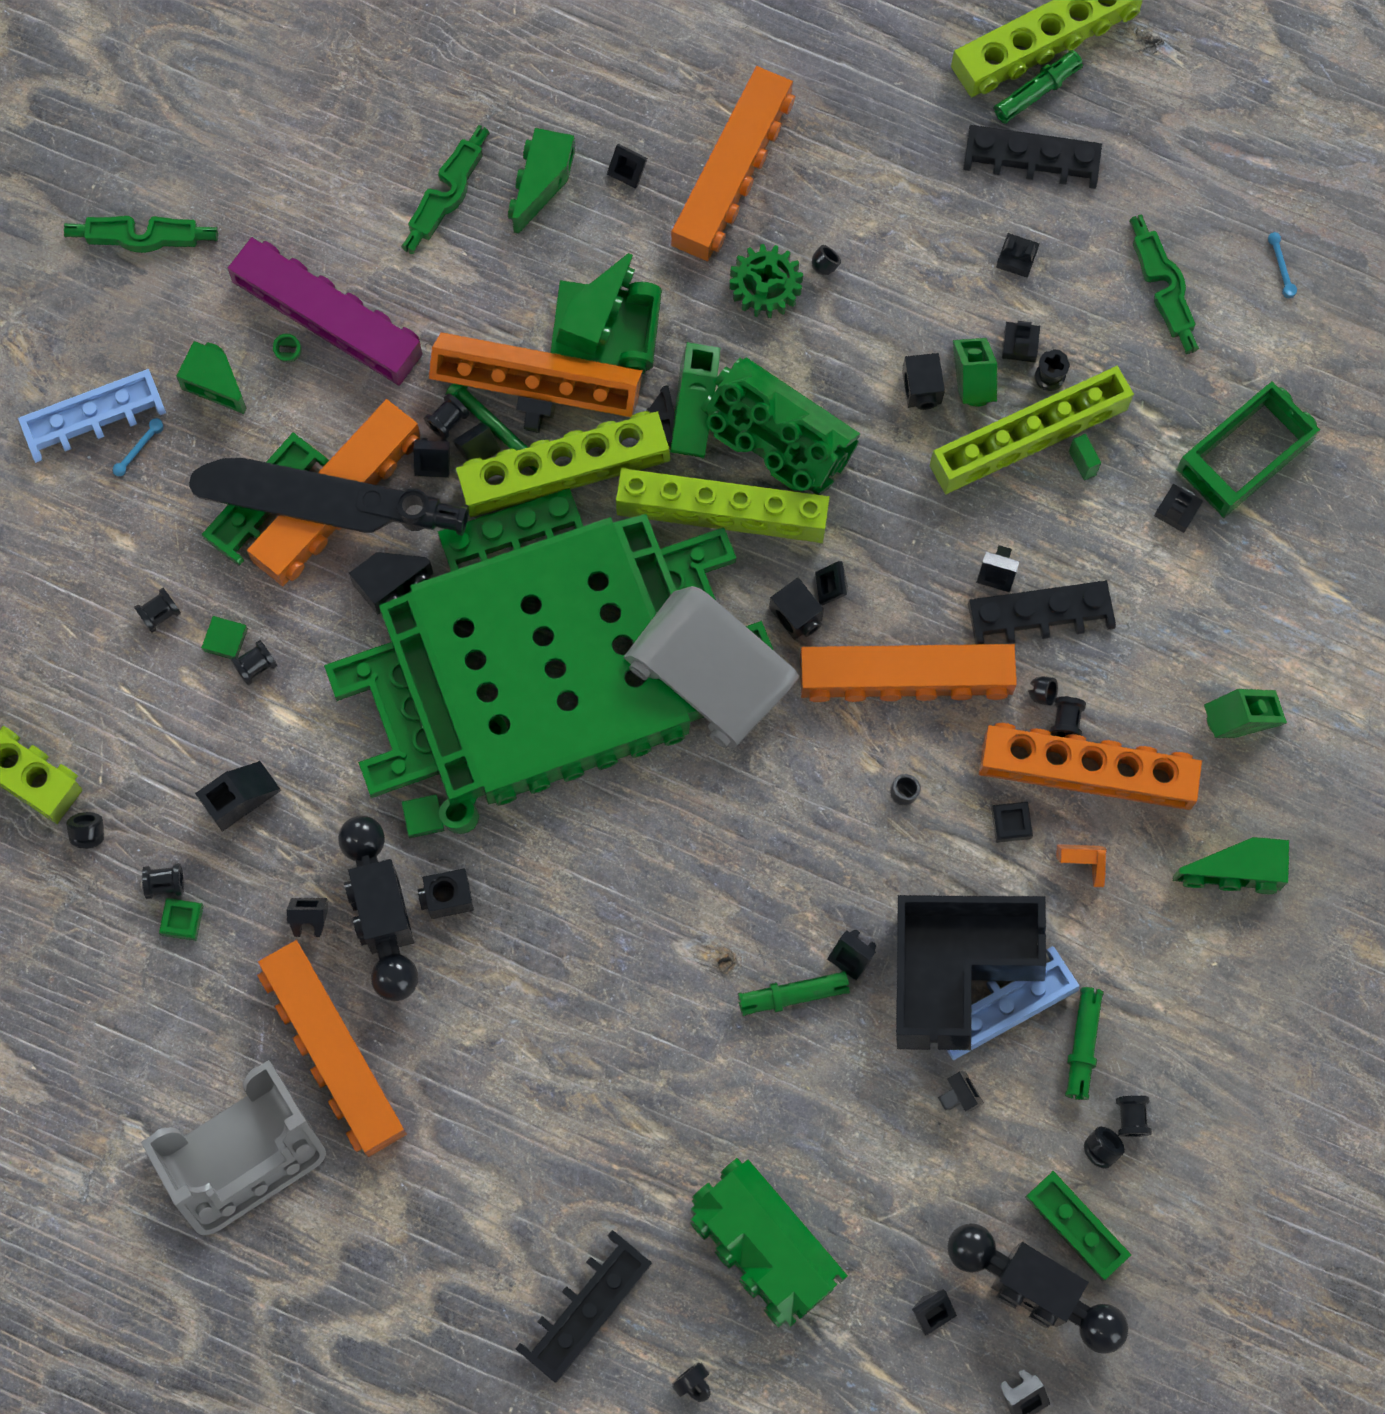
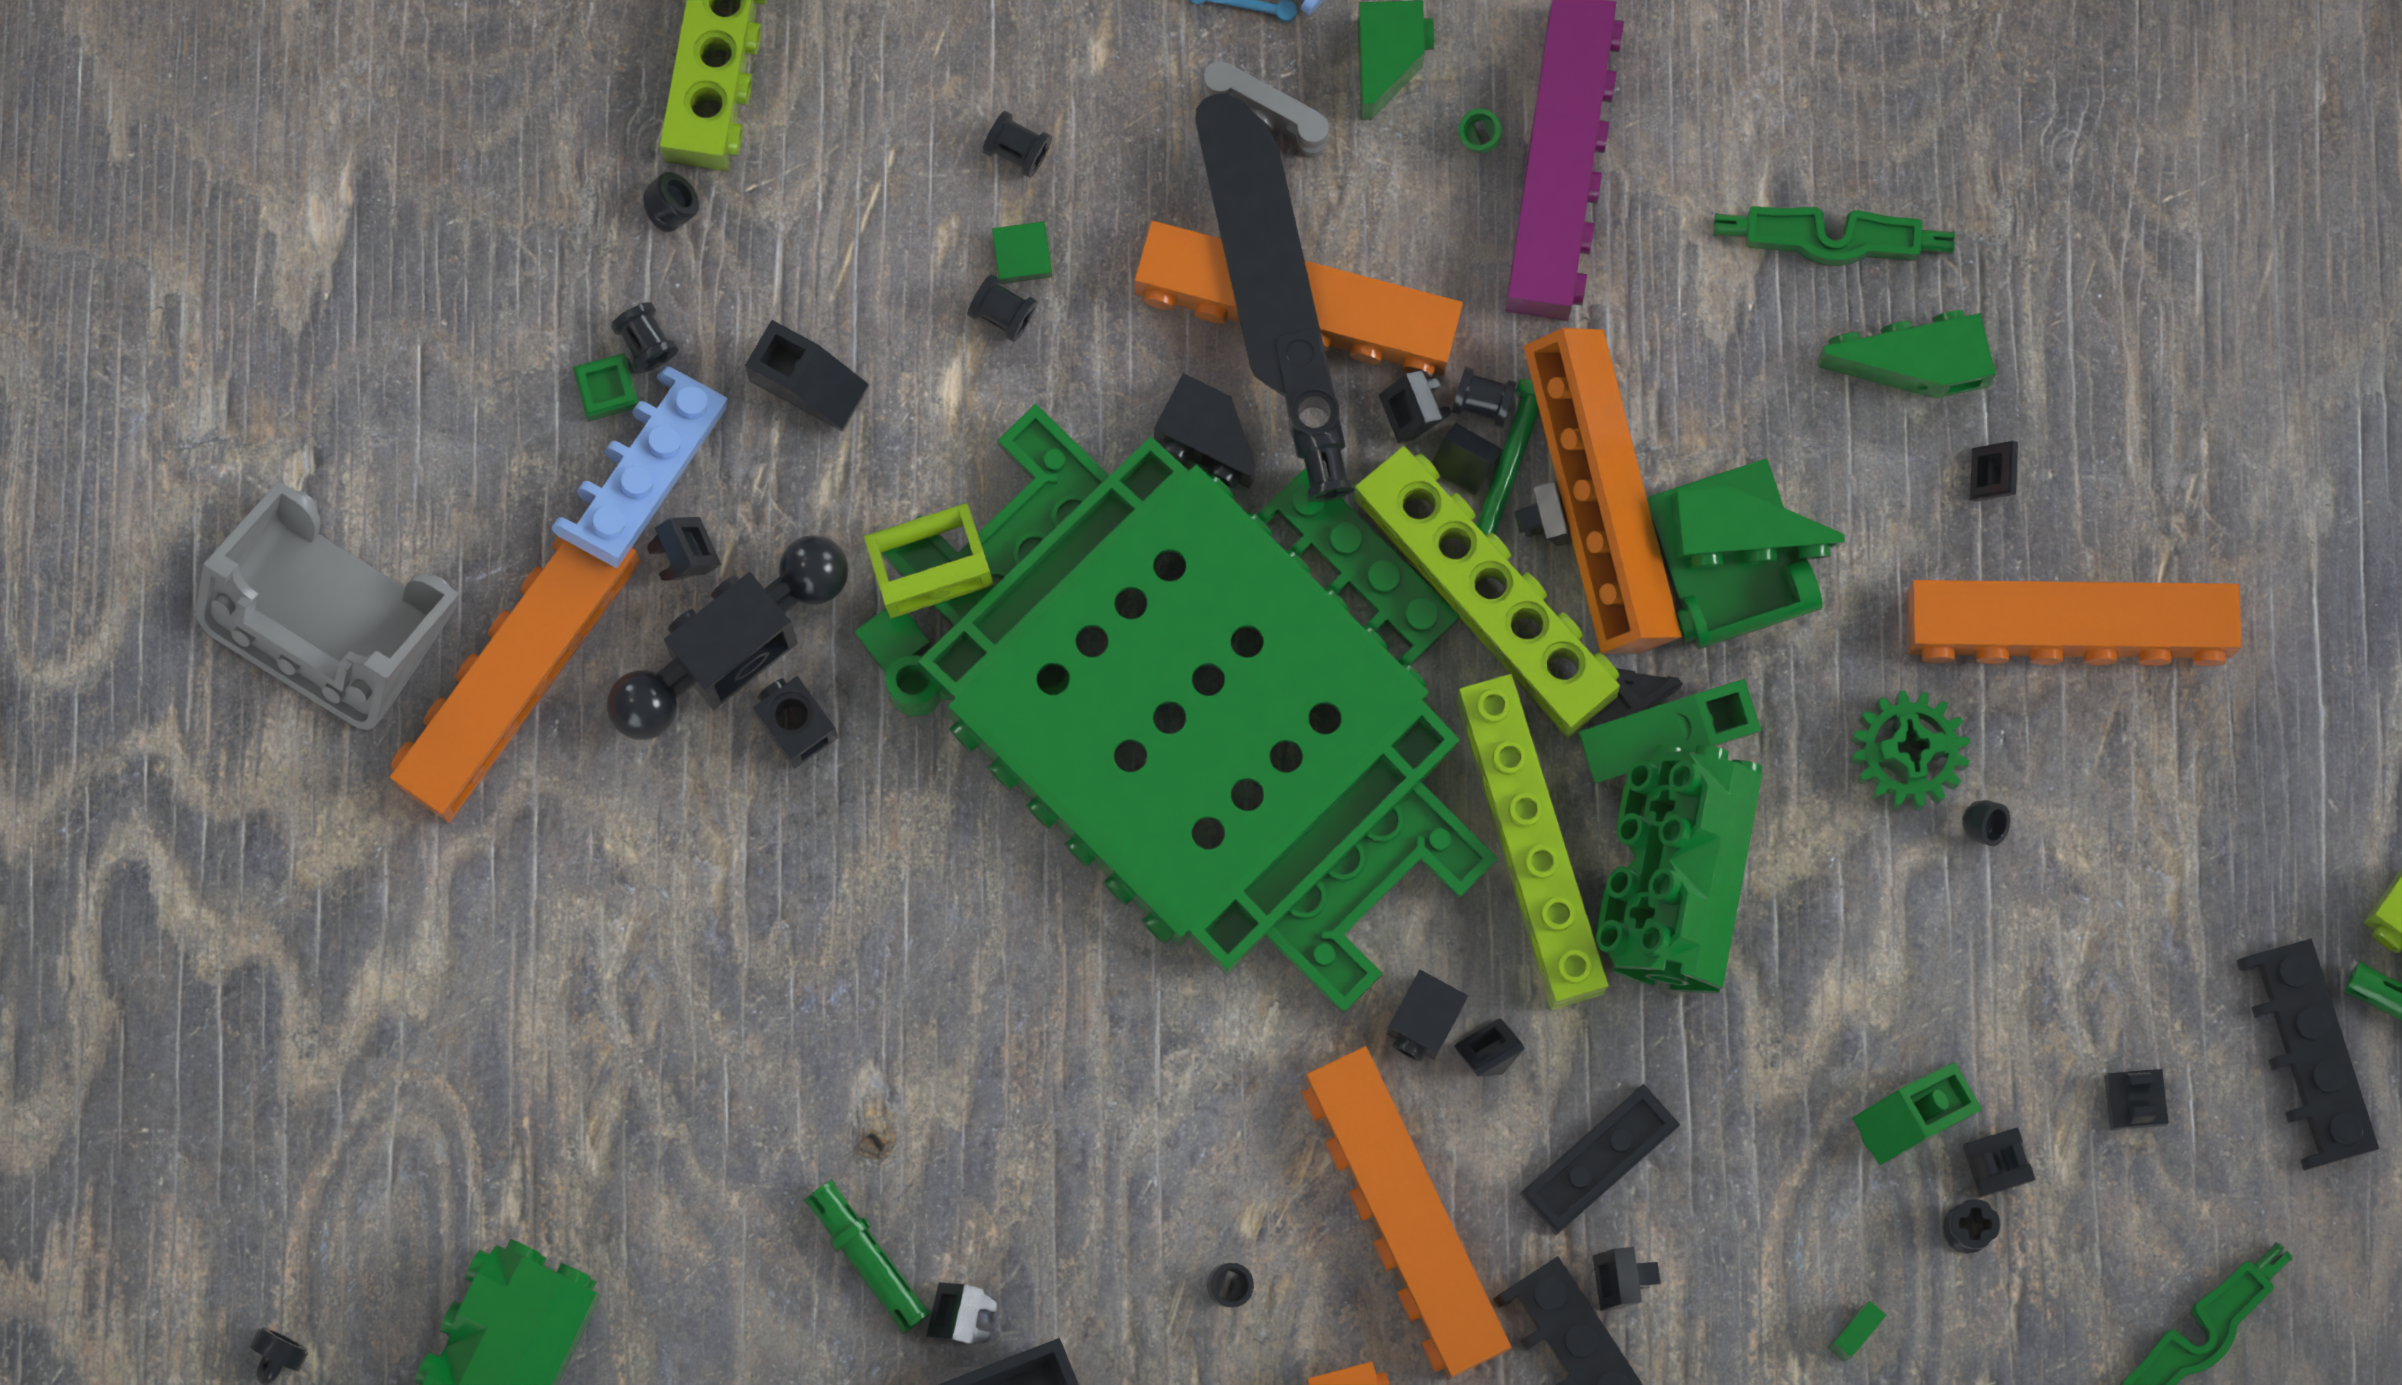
camera: 65 degrees right, 5 degrees up
(227, 445) = (1271, 106): none -> light grey plate
(237, 523) = (1183, 188): green hinge -> none
(247, 913) = (645, 469): none -> light blue hinge
(408, 765) = (936, 583): none -> lime tile
(588, 1309) = (314, 1171): black hinge -> none
(712, 664) = (1268, 928): light grey windscreen -> none
(922, 553) = (1599, 1159): none -> black tile
(923, 381) = (1862, 1045): black brick -> none
(1031, 430) = (1858, 1235): lime brick -> none

